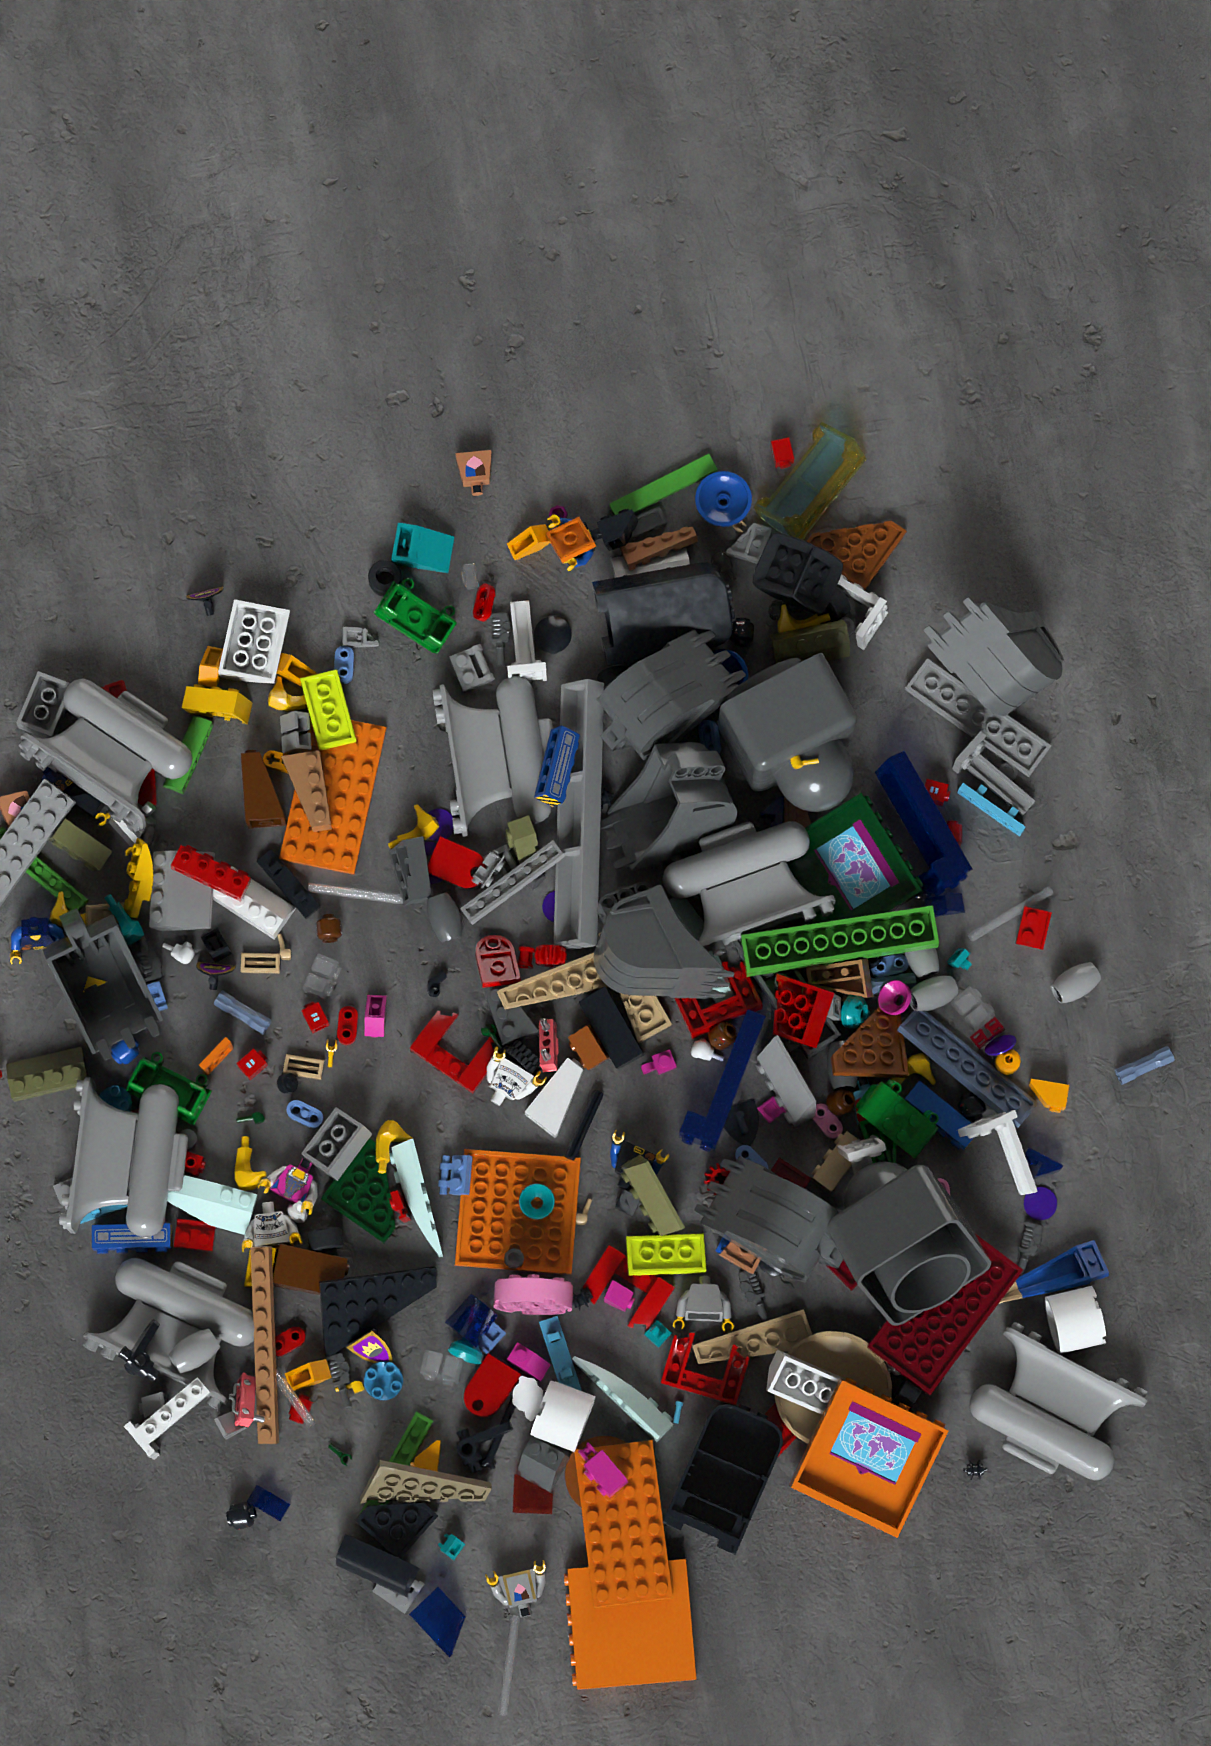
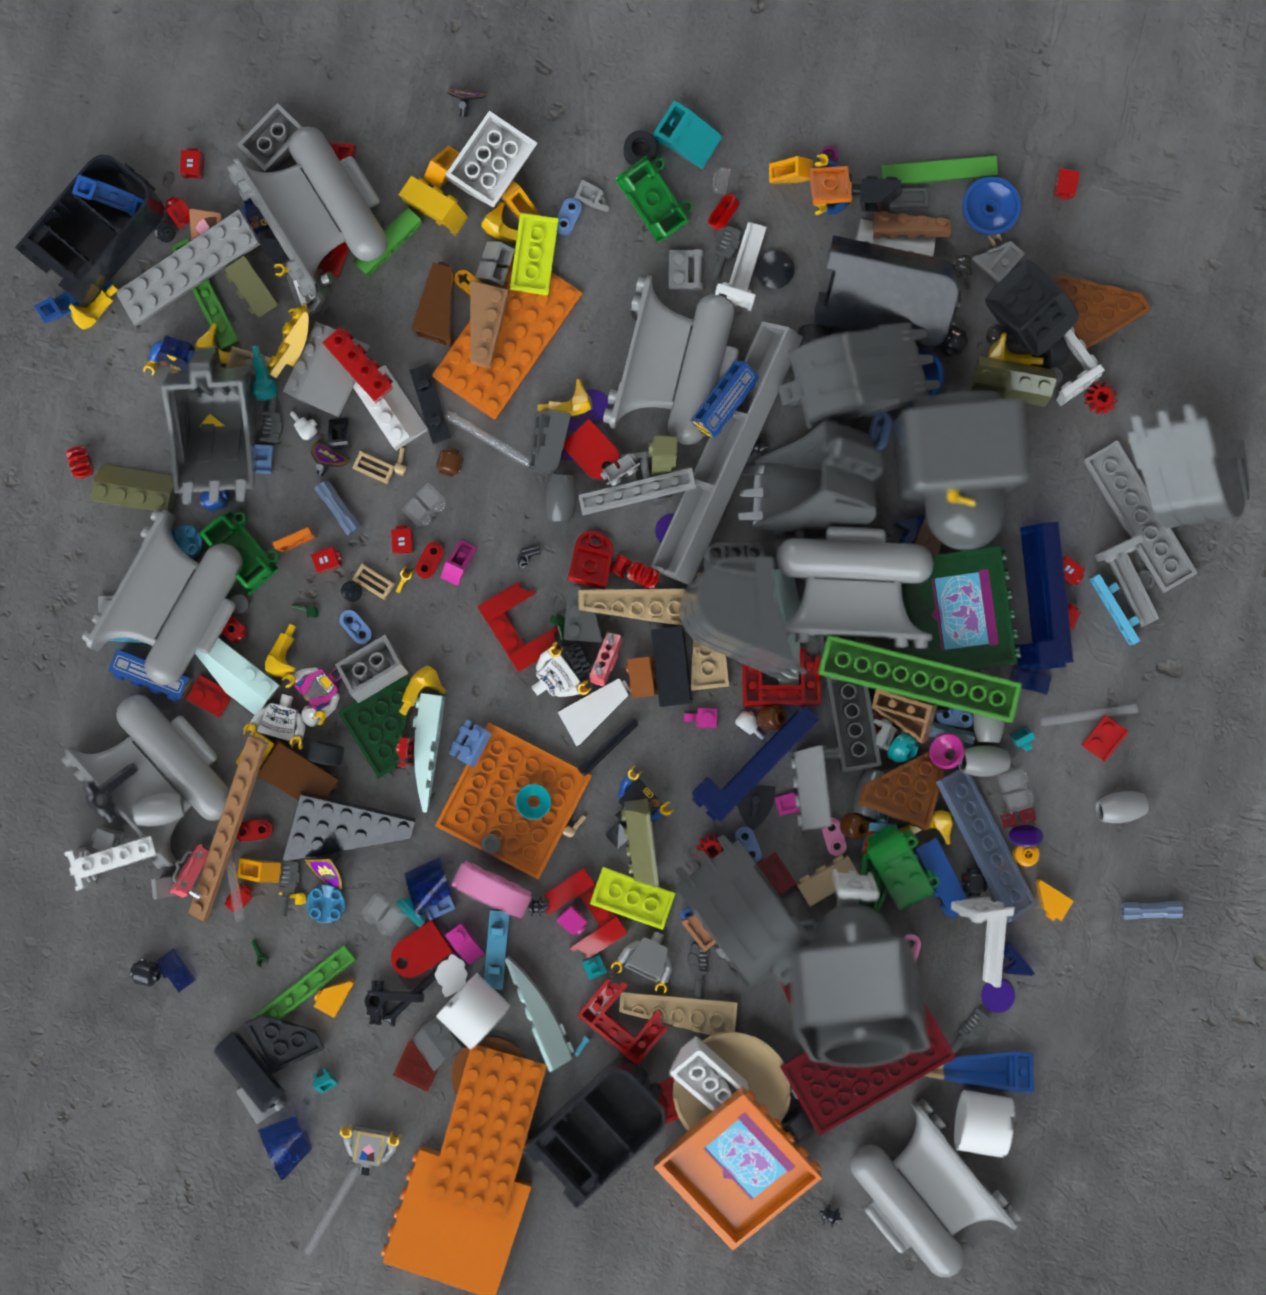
camera: 30 degrees right, 10 degrees up
(416, 1484) = (318, 1017): dark tan wing -> none
(475, 469) = (769, 79): nougat torso -> none
(602, 1471) = (487, 1078): dark pink brick -> none
(800, 1011) = (853, 729): red wedge -> none
(812, 483) = (1082, 225): windscreen -> none
(896, 634) = (1100, 391): none -> red gear

